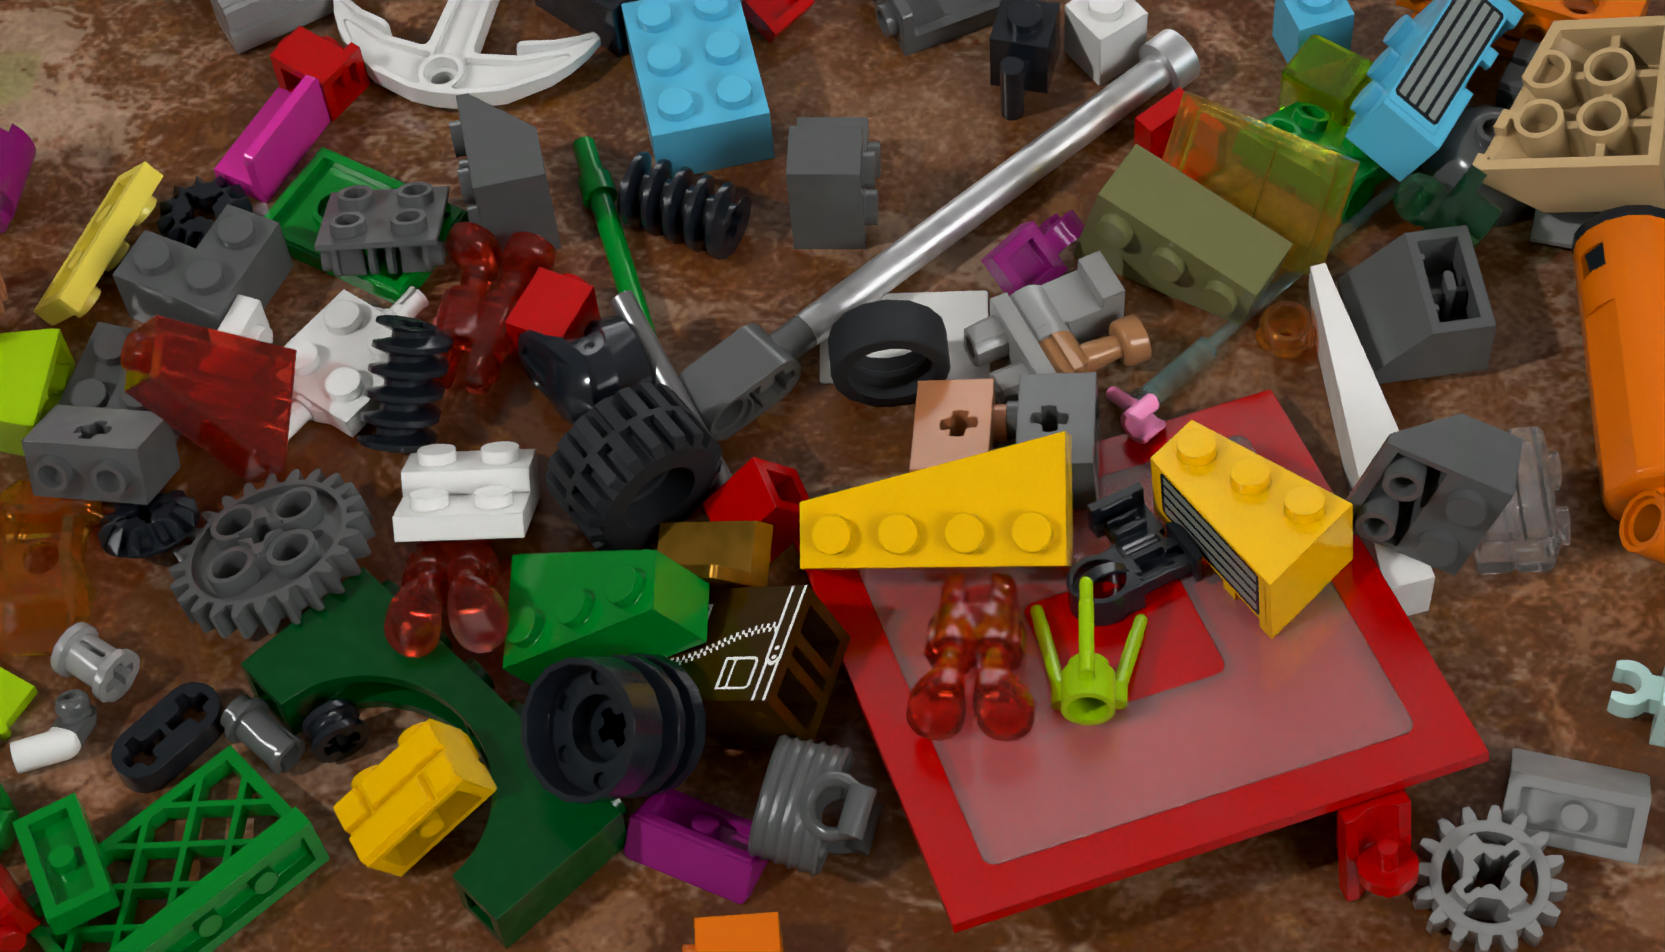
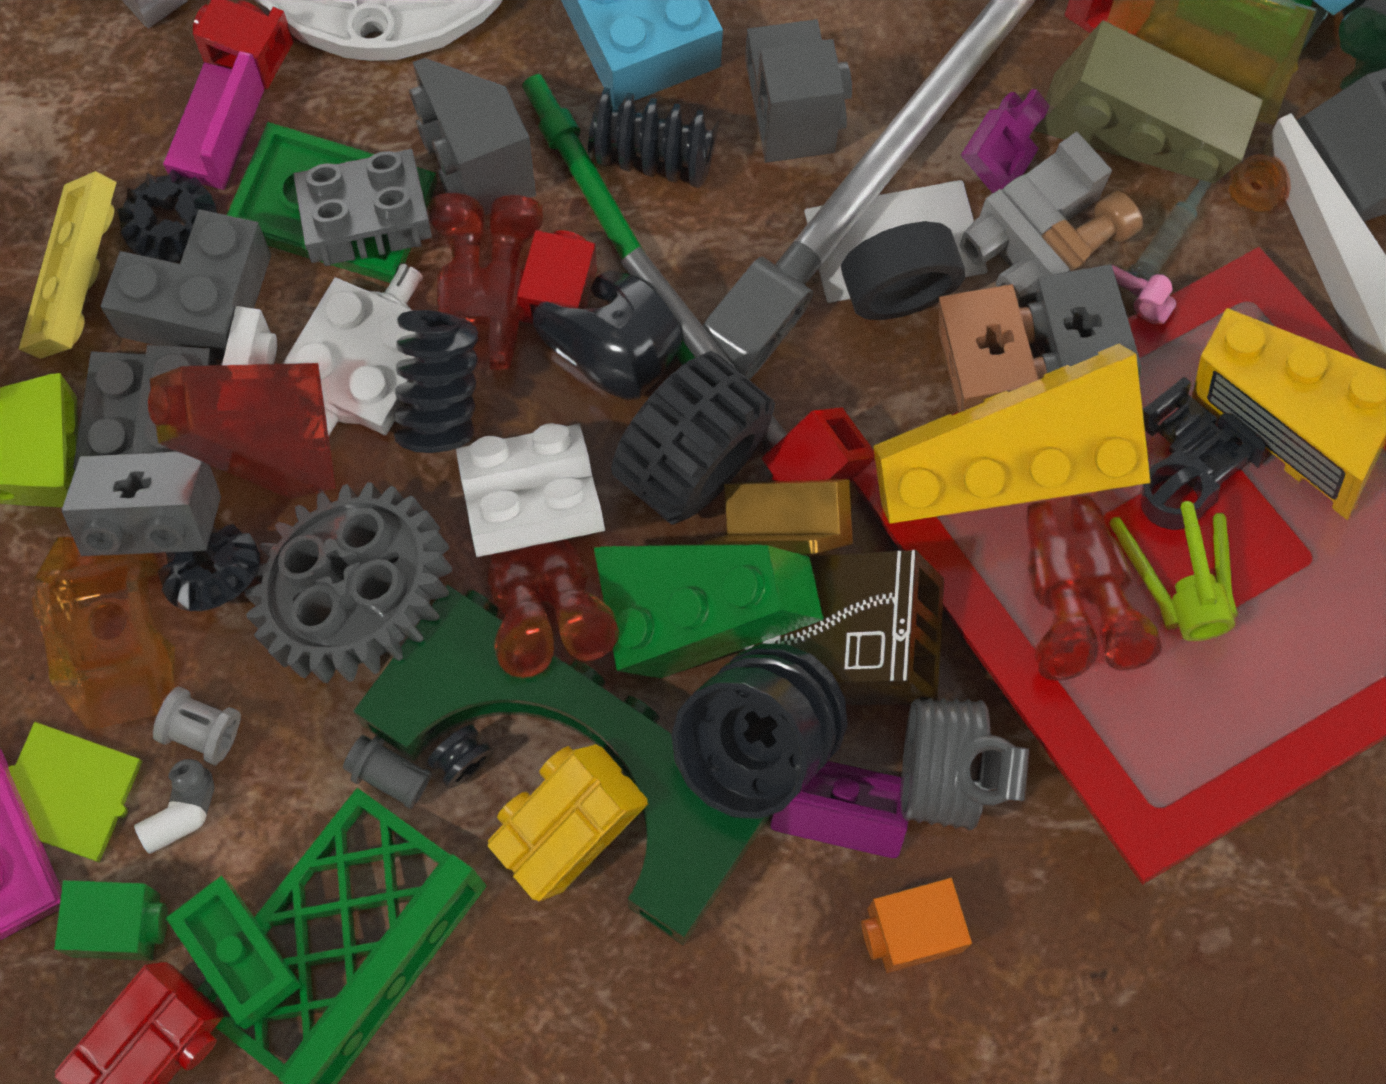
camera: 20 degrees left, 15 degrees up
(168, 737) = (280, 780): black beam -> none

